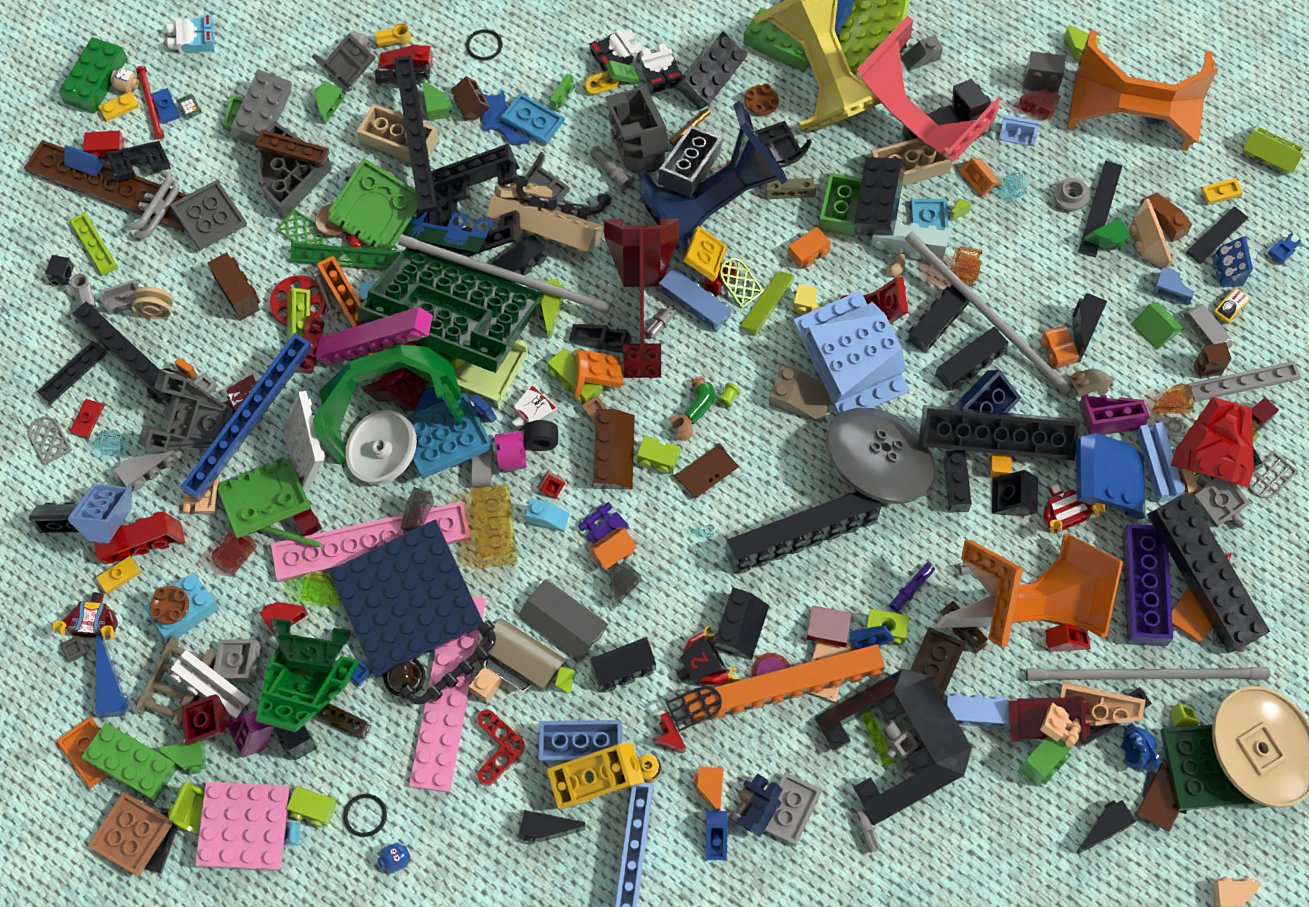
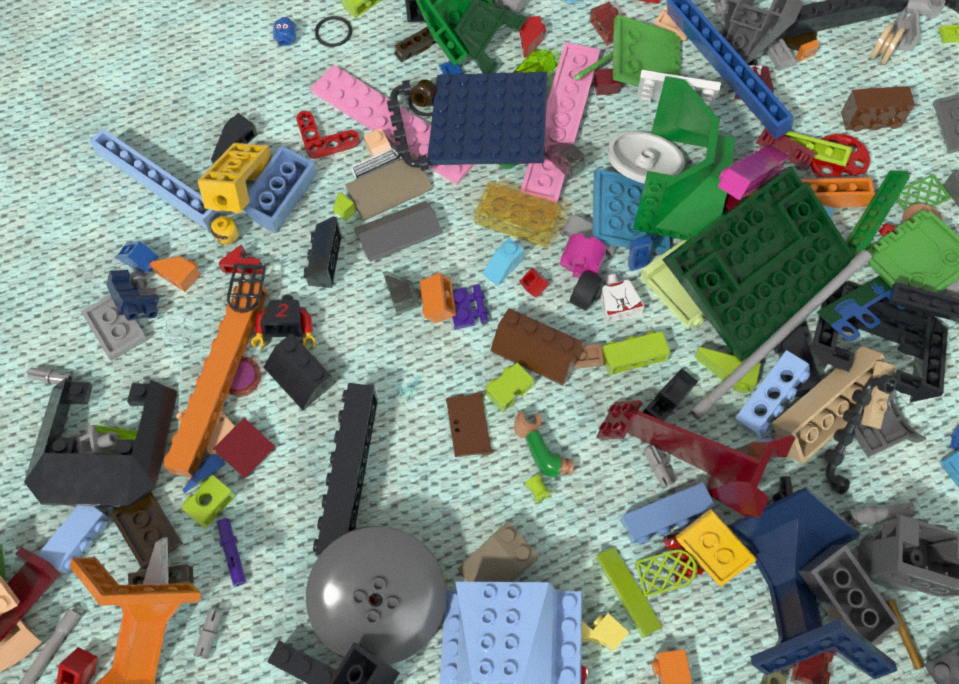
camera: 120 degrees right, 0 degrees up
(531, 261) = (787, 365): none -> light blue brick
(596, 369) = (631, 371): orange piece -> none

